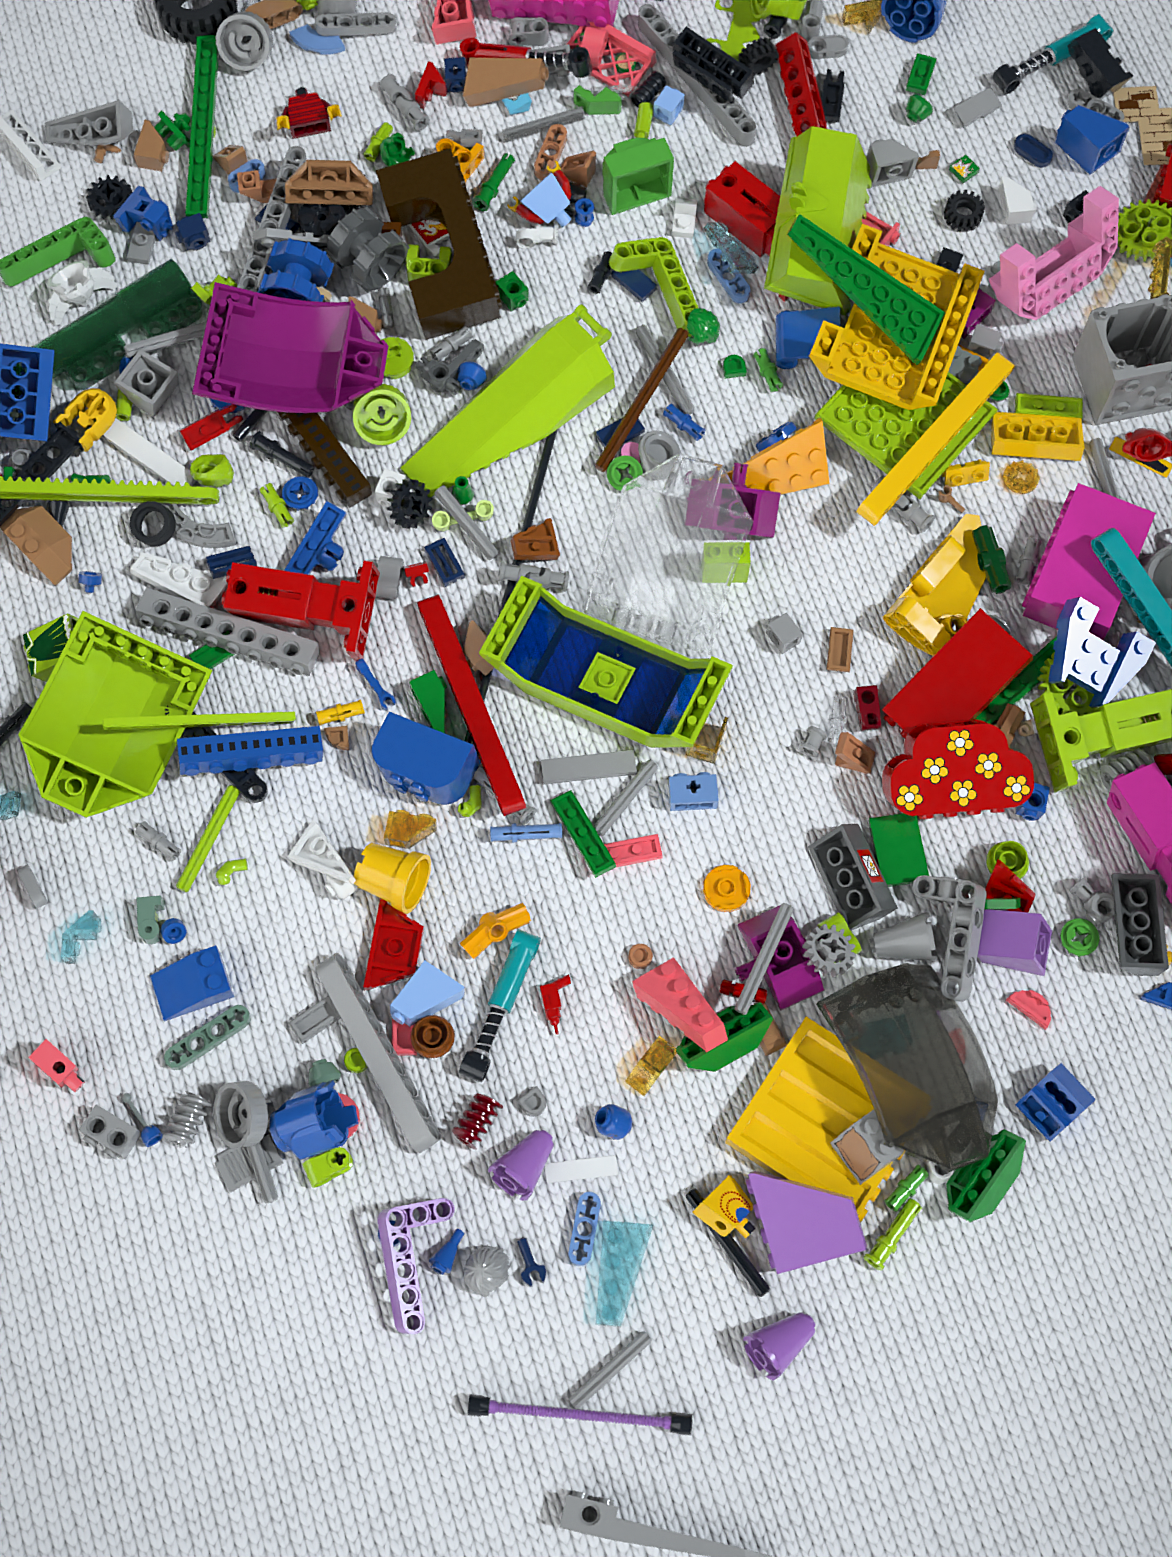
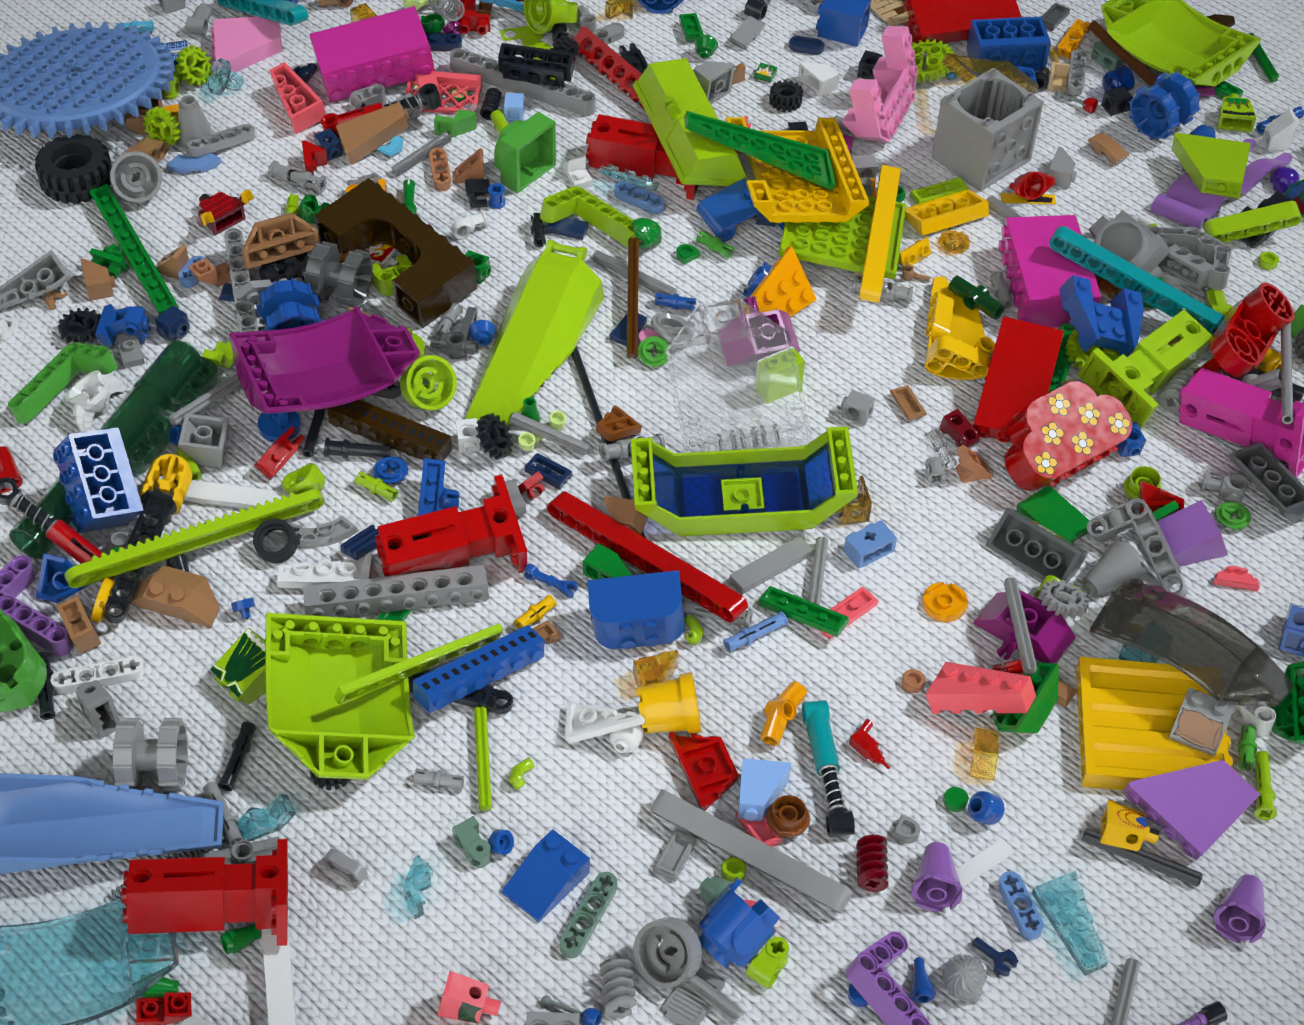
camera: 30 degrees left, 20 degrees down
(546, 200) = (462, 196): light blue torso -> none
(597, 1095) = (955, 799): none -> green tile

